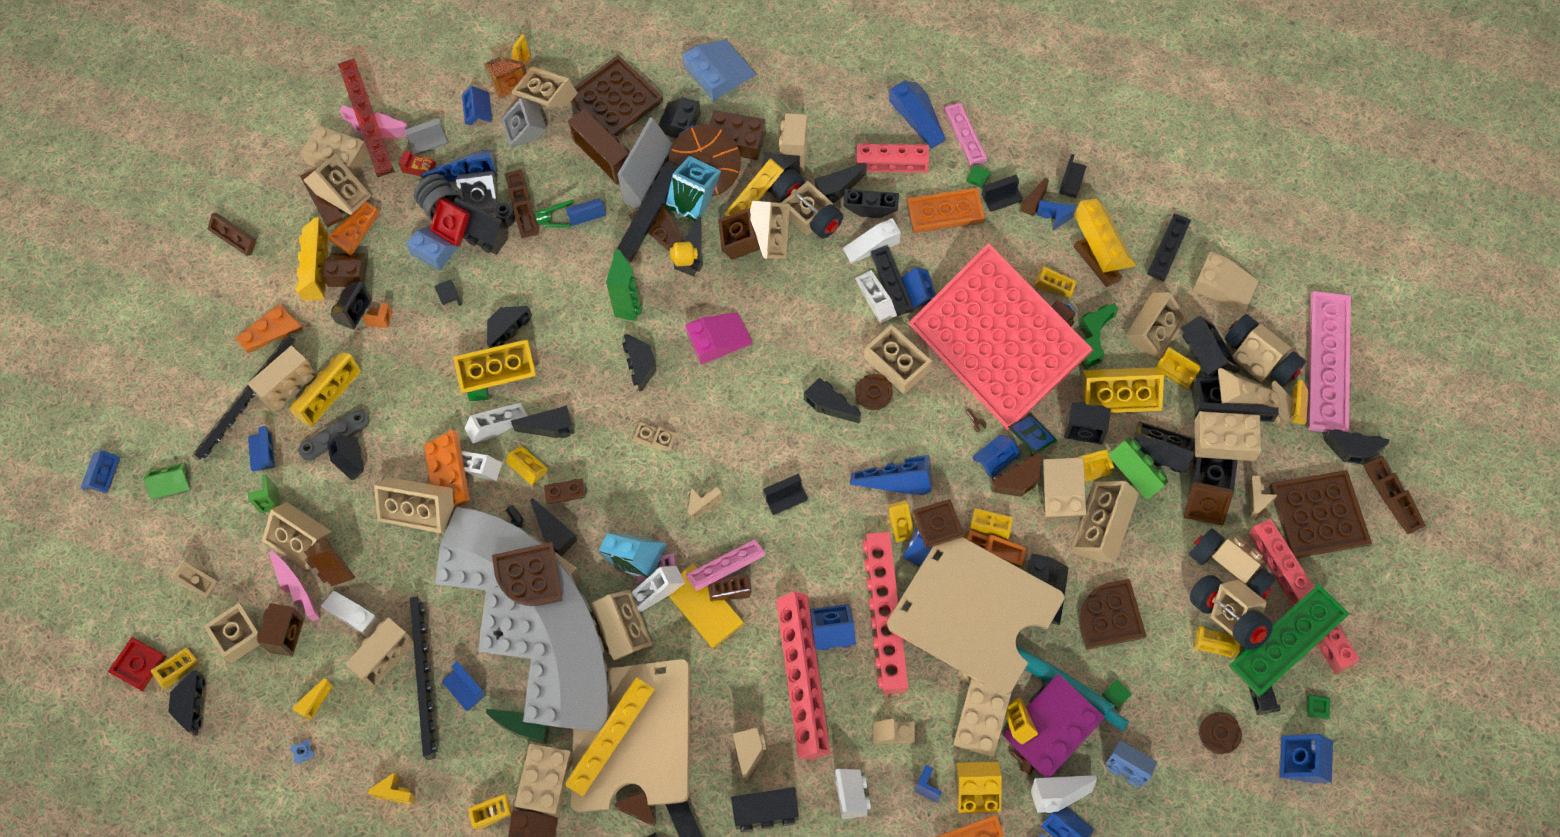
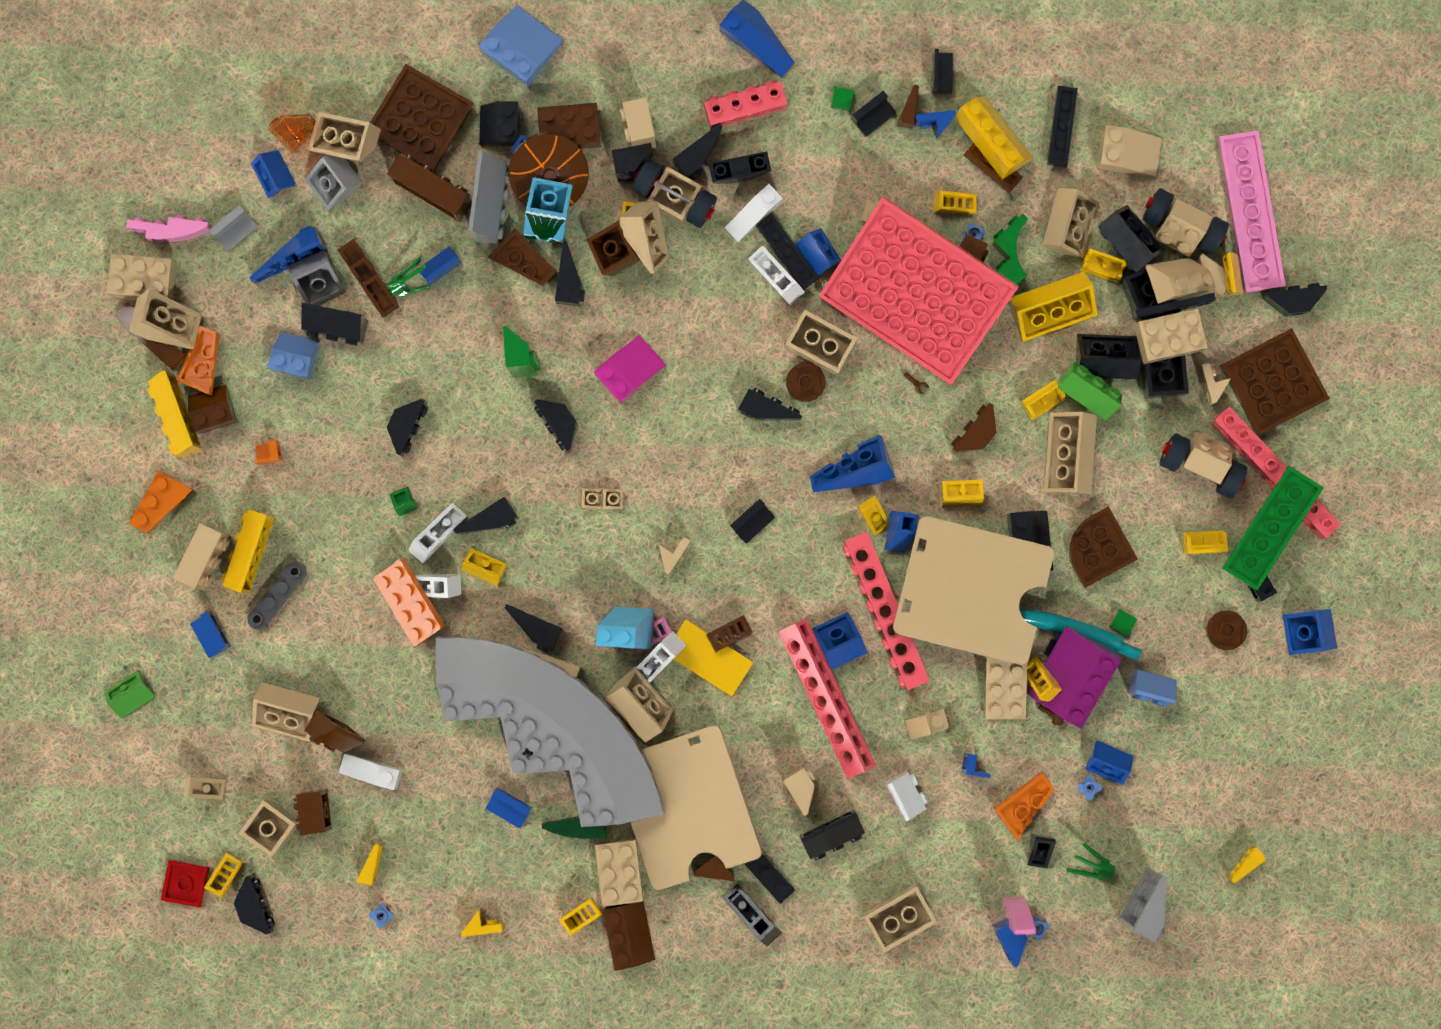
camera: 20 degrees left, 20 degrees up
(100, 471) = (56, 707): blue panel -> none
(231, 234) = (72, 407): reddish brown plate -> none
(238, 406) = (166, 592): black plate -> none
(267, 498) = (244, 686): bright green panel -> none
(291, 583) = (298, 758): bright pink slope -> none
(346, 455) = (301, 616): black slope -> none
(351, 305) = (235, 451): black slope -> none
(366, 118) = (161, 230): clear red plate -> none
(379, 652) = (418, 804): tan brick -> none
(413, 504) = (391, 647): tan slope -> none
(415, 164) = (237, 265): red leg -> none
(424, 685) = (472, 819): black plate -> none
(431, 190) = (278, 303): dark grey wheel -> none
(447, 292) = (332, 407): black panel -> none
(449, 221) = (303, 328): red tile -> none
(494, 366) = (414, 476): yellow slope -> none
(505, 213) = (358, 304): black brick -> none
(516, 518) = (496, 628): black arm -> none
(520, 50) = (297, 94): yellow slope -> none
(529, 575) = (540, 694): reddish brown plate -> none
(565, 491) = (535, 588): reddish brown bracket -> none
(609, 736) = (668, 816): yellow plate -> none
(647, 213) = (508, 250): black tile -> none
(683, 253) = (565, 294): yellow head -> none
(725, 565) = (718, 612): bright pink tile -> none
(757, 187) = (614, 195): yellow tile -> none
(937, 523) = (913, 513): reddish brown tile -> none
(945, 210) = (819, 151): orange plate -> none
(965, 134) = (813, 50): bright pink tile -> none
(978, 787) = (1019, 751): yellow slope -> none
(997, 455) = (947, 414): blue panel -> none
(1002, 548) = (972, 514): orange slope -> none
(1032, 433) = (977, 382): piece -> none
(1059, 792) = (1091, 738): white slope -> none
(1064, 488) = (1024, 433): tan slope -> none
(1087, 423) = (1028, 356): black brick -> none
(1208, 503) = (1166, 407): reddish brown tile -> none
(1234, 609) = (1216, 512): brick -> none
(1318, 707) = (1310, 577): green tile -> none
(1396, 498) = (1341, 339): reddish brown slope -> none

